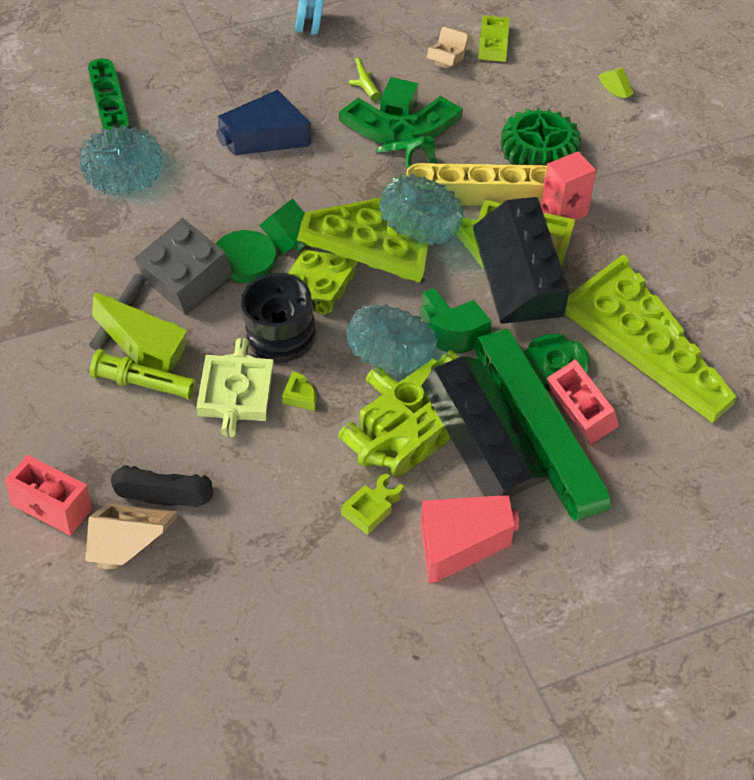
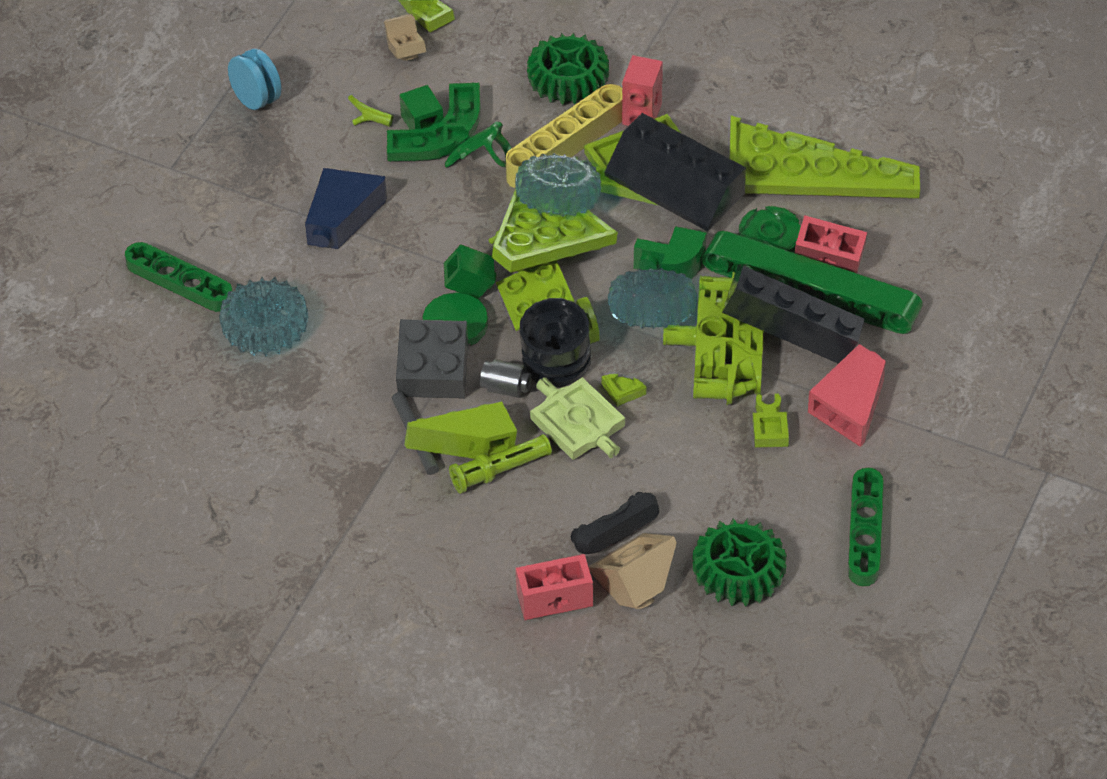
camera: 40 degrees left, 0 degrees up
(219, 609) = (733, 572): none -> green gear
(221, 319) = (505, 378): none -> flat silver brick
(333, 322) = (585, 304): none -> lime tile
(344, 645) = (865, 526): none -> green beam

